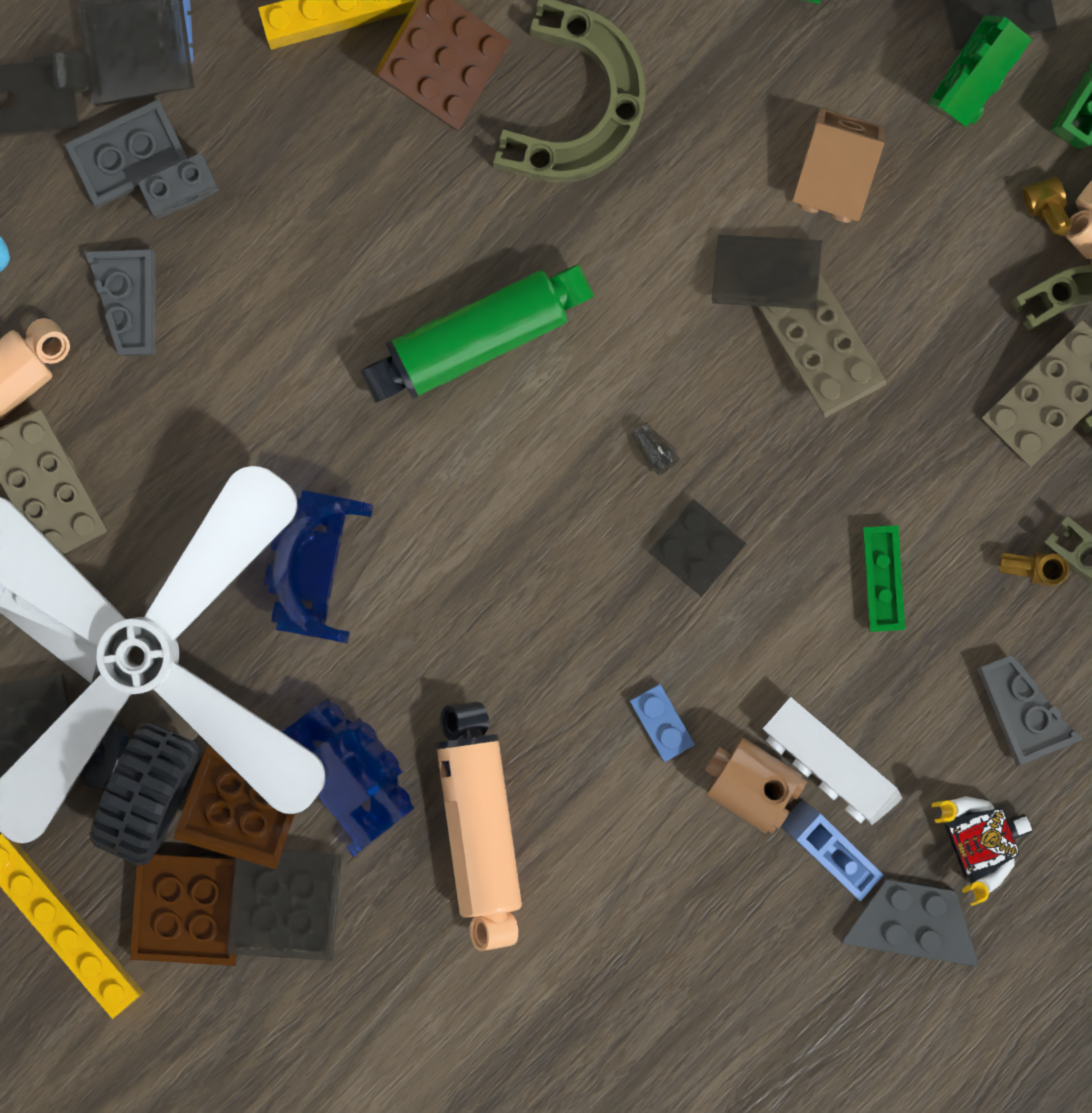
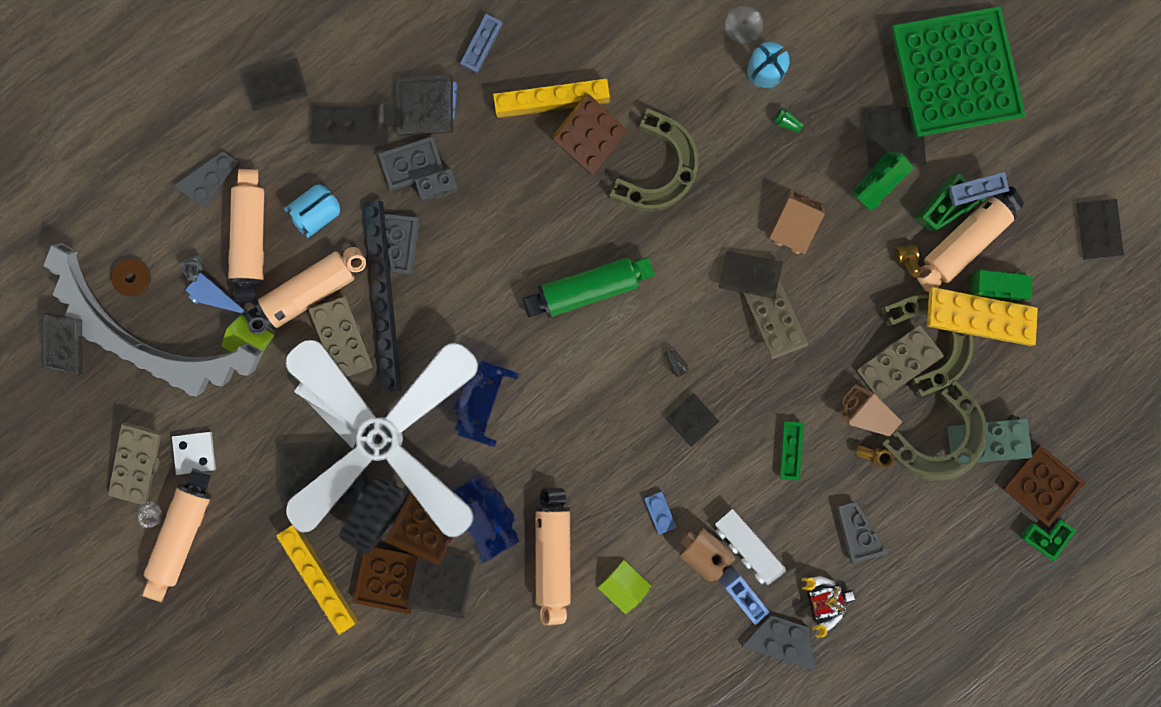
camera: 10 degrees right, 0 degrees up
(107, 402) = (382, 297): none -> black plate
(616, 865) = (625, 587): none -> lime slope
(1012, 490) = (868, 412): none -> medium nougat slope

